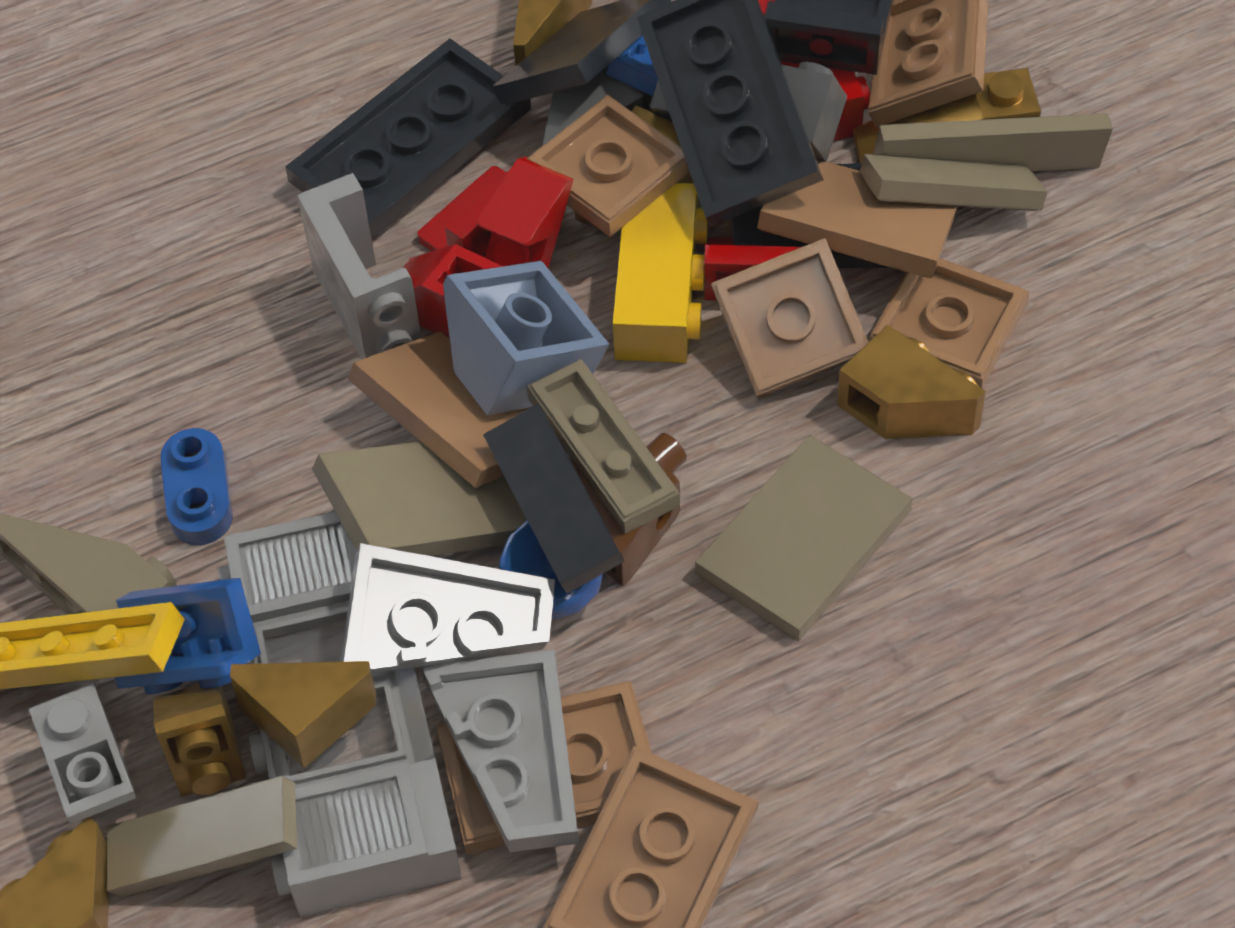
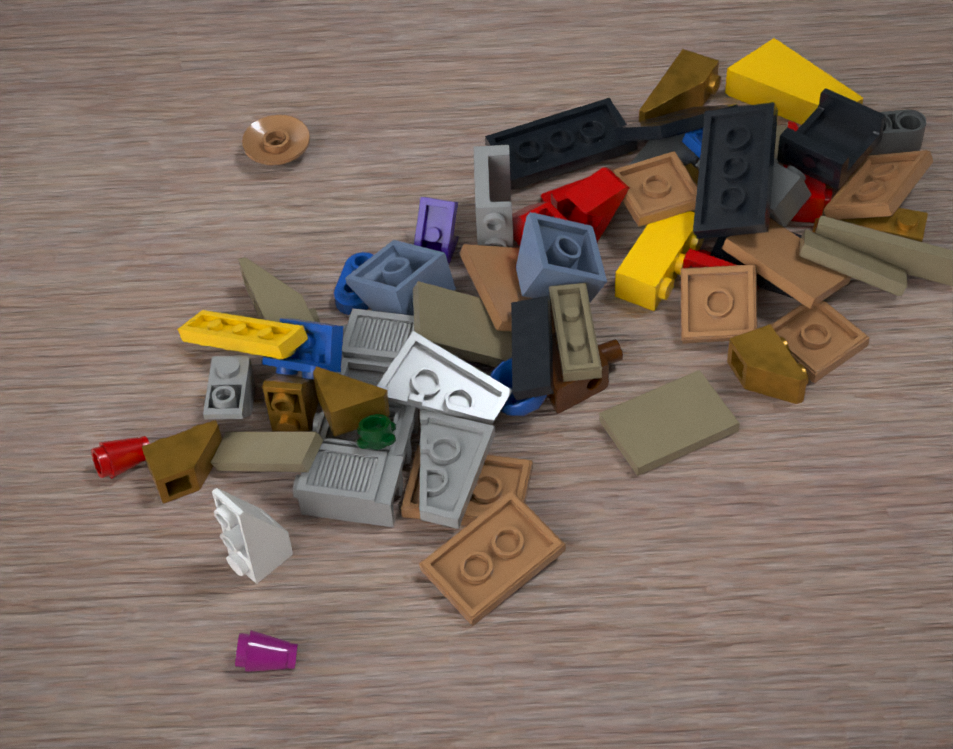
camera: 25 degrees right, 5 degrees down
(264, 453) = (390, 275): none -> sand blue slope
(288, 360) = (437, 225): none -> slope
(375, 737) = (376, 432): none -> dark green plate

